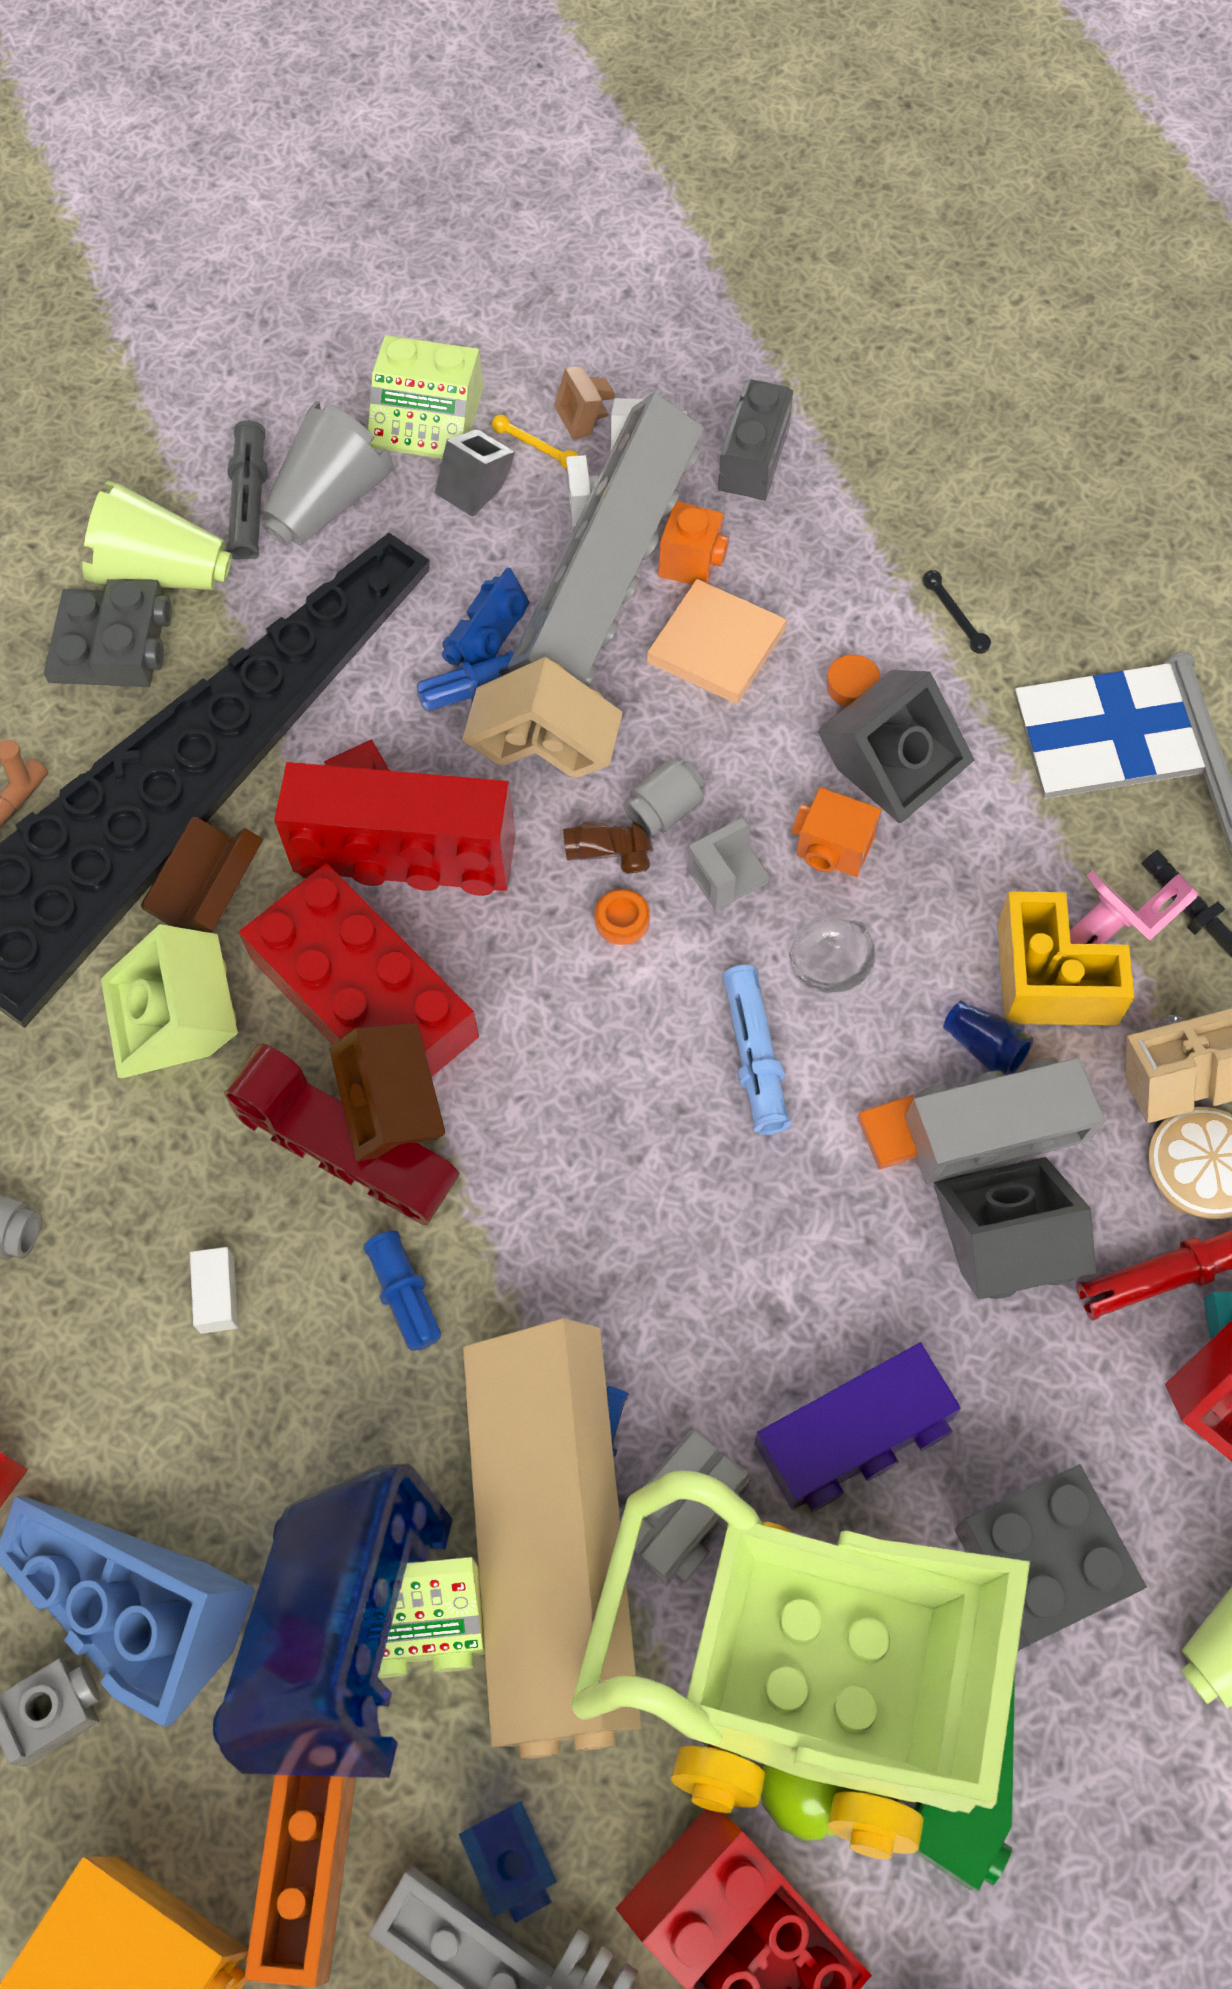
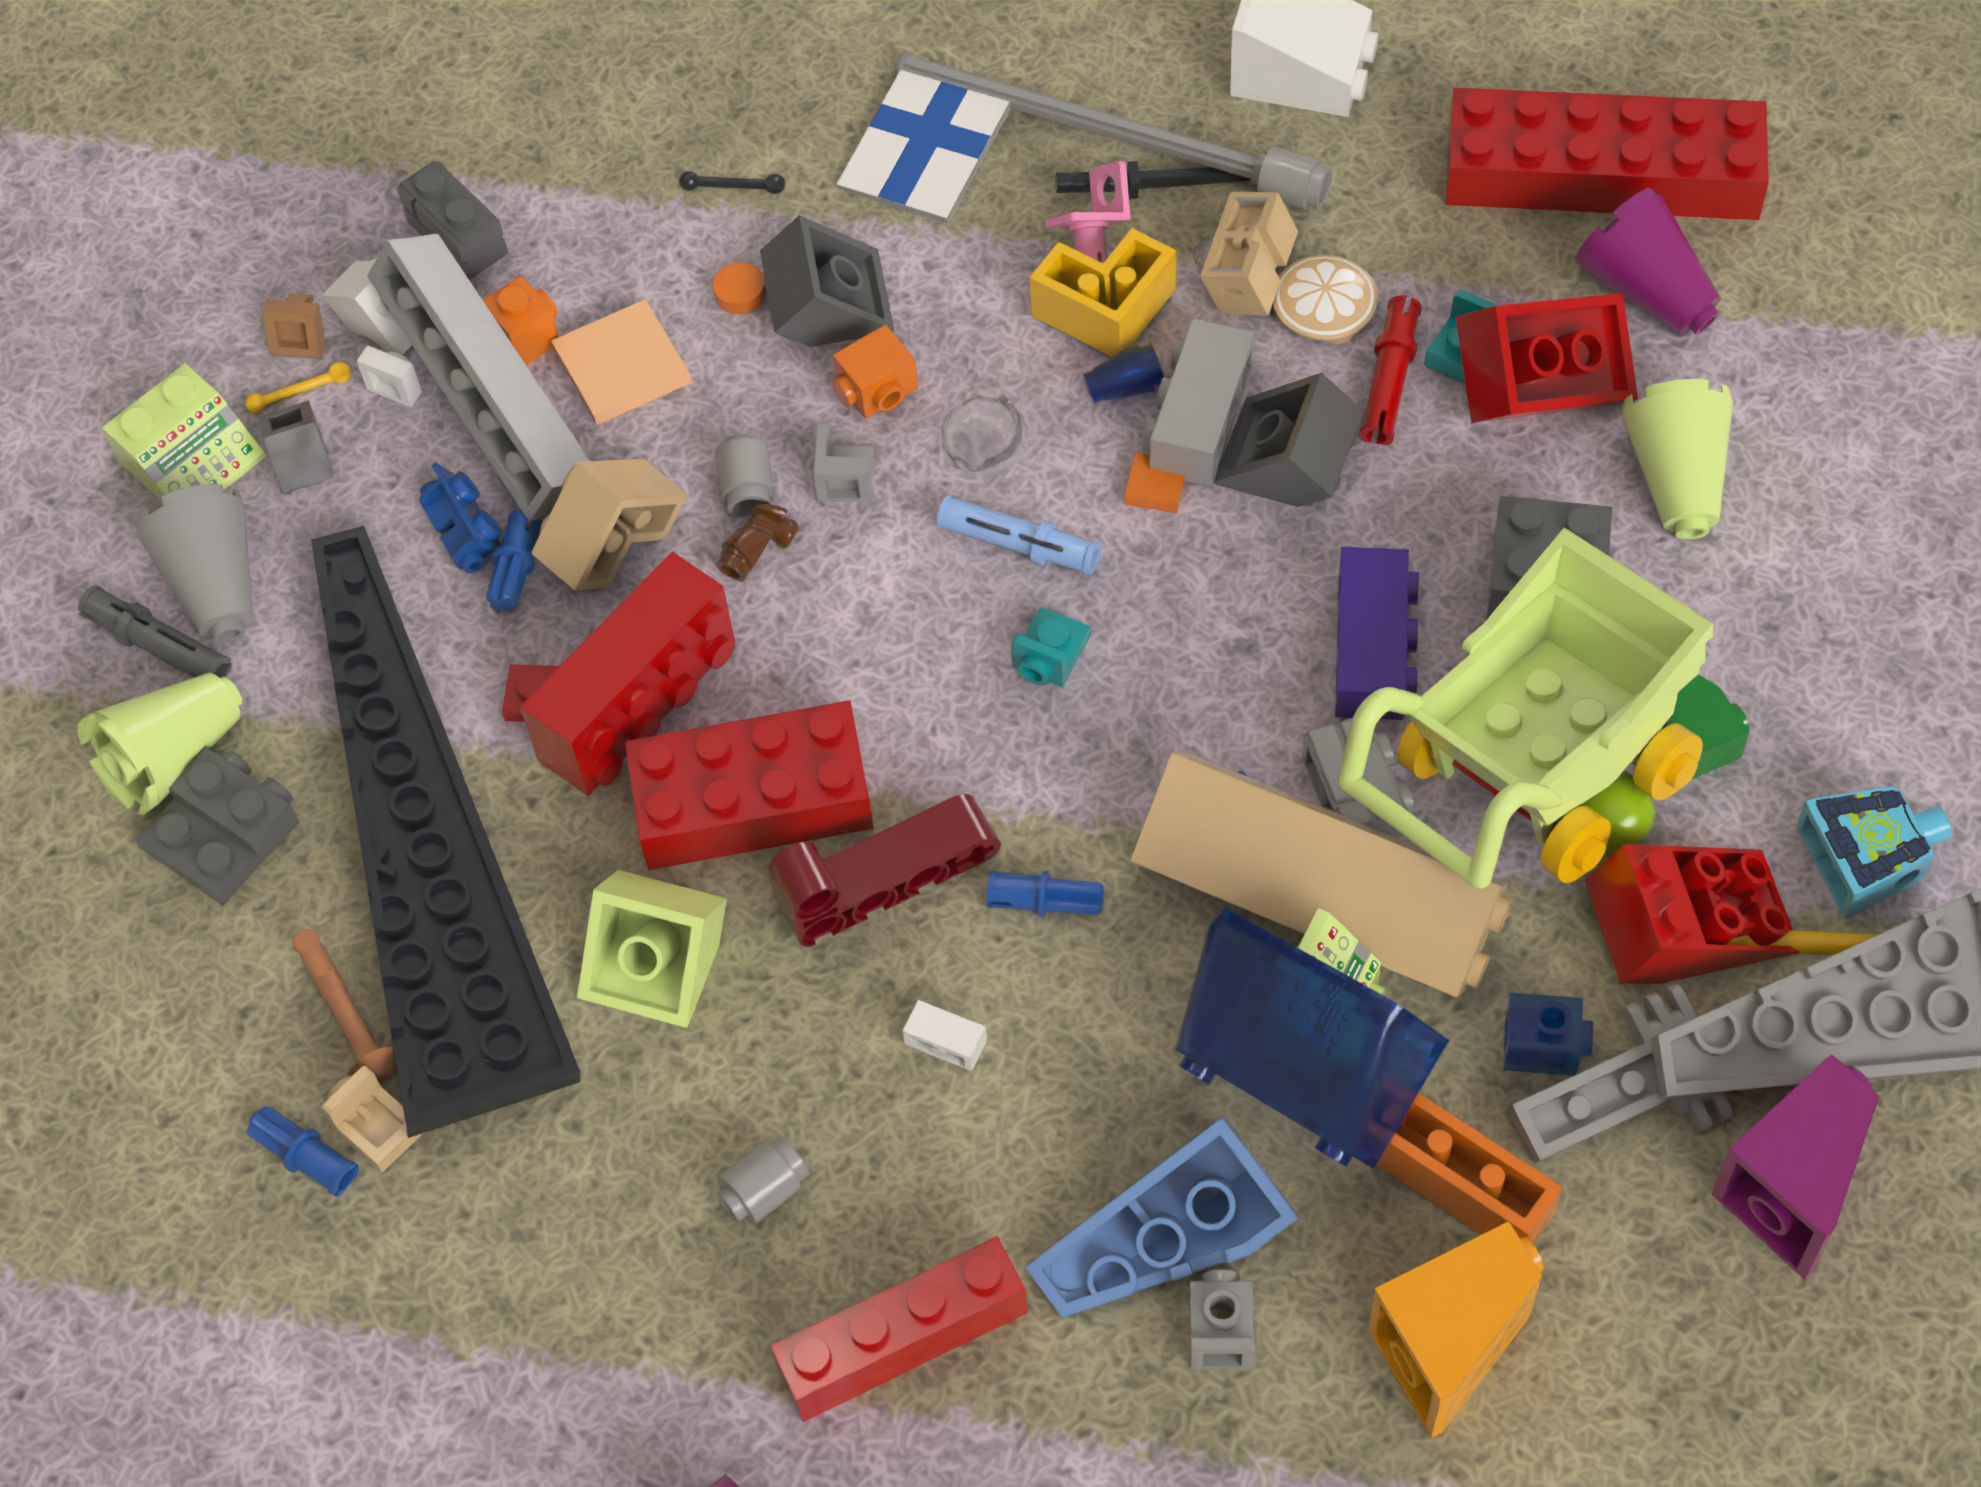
camera: 55 degrees left, 5 degrees down
(200, 876) = (550, 857): reddish brown panel -> none
(386, 1089) = (878, 795): reddish brown panel -> none
(622, 916) = (827, 568): orange tile -> none
(658, 1144) = (1049, 648): none -> teal bracket

